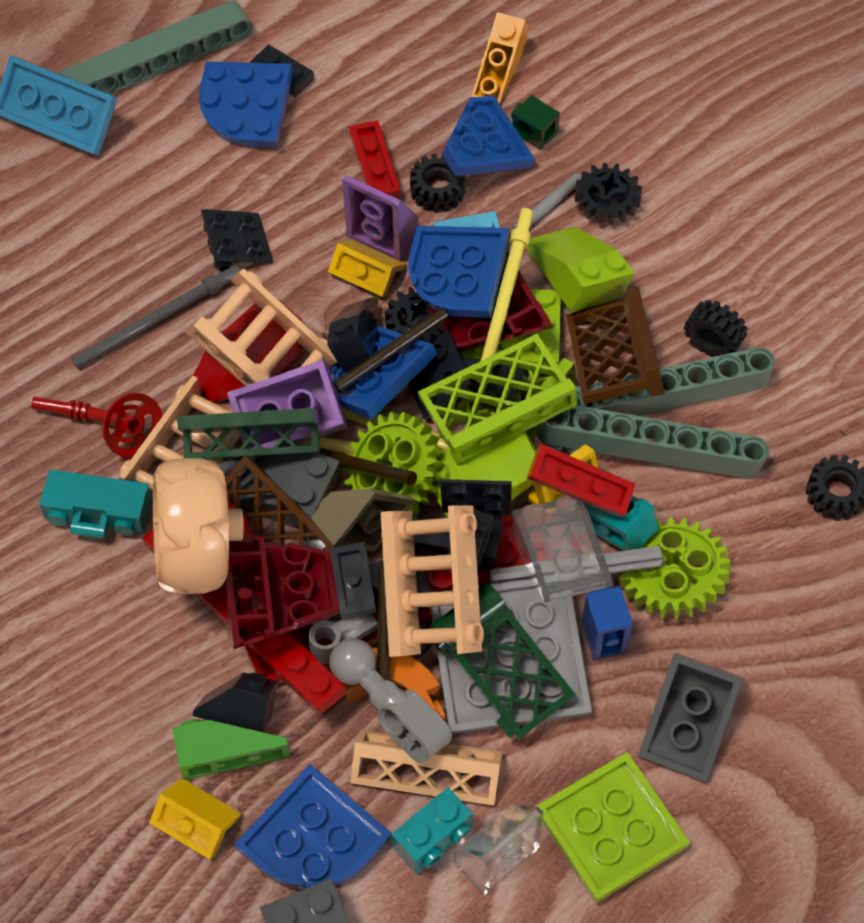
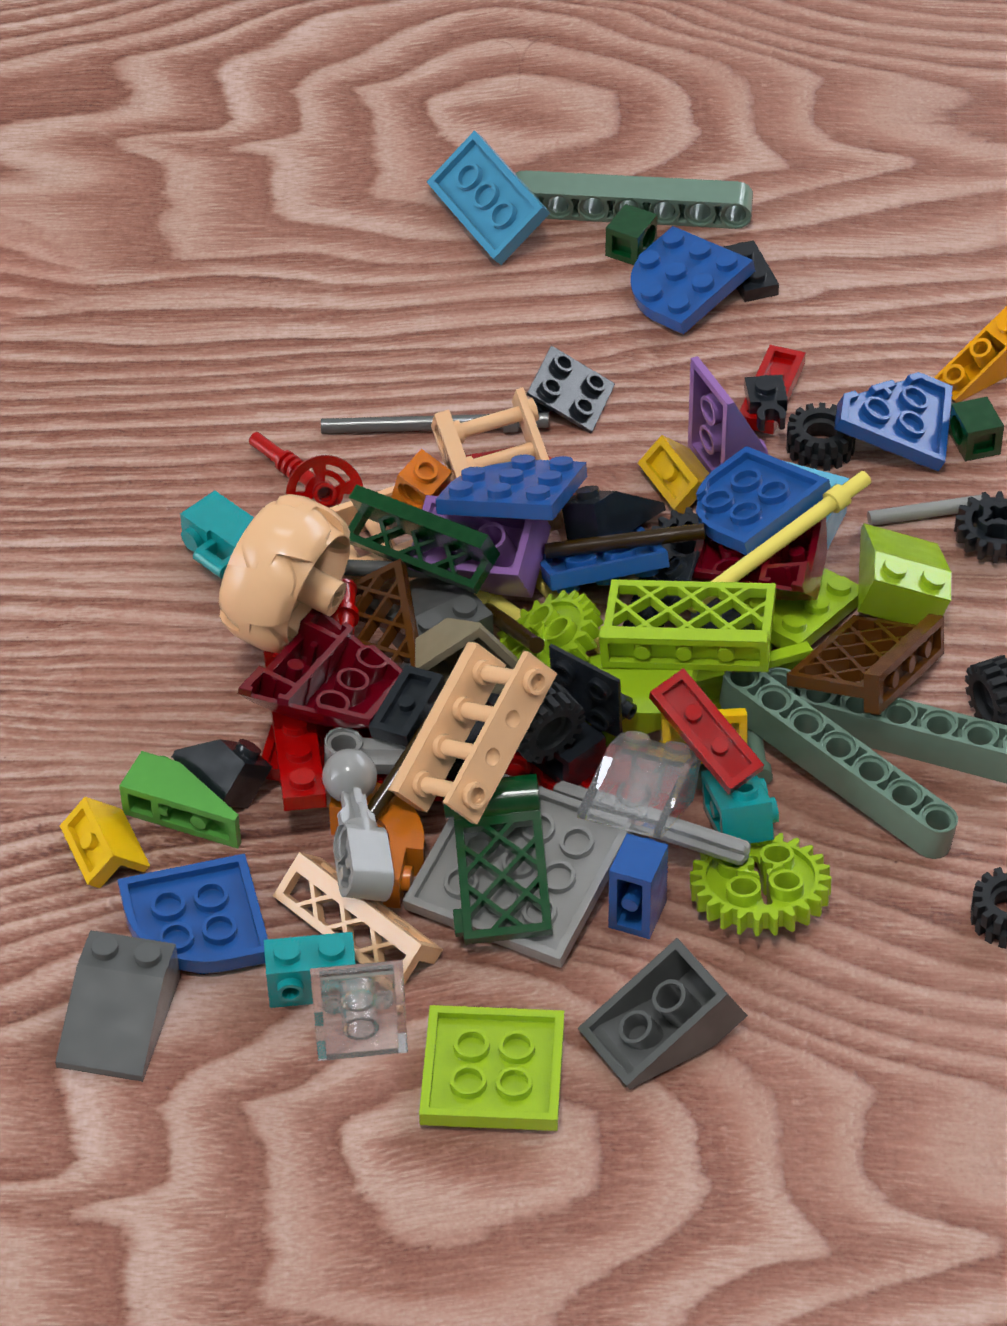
camera: 35 degrees right, 15 degrees down
(180, 83) = (630, 234): none -> dark green brick
(207, 381) = (420, 478): none -> orange brick
(295, 356) = (514, 489): none -> blue plate
(383, 172) = (767, 398): none -> black plate

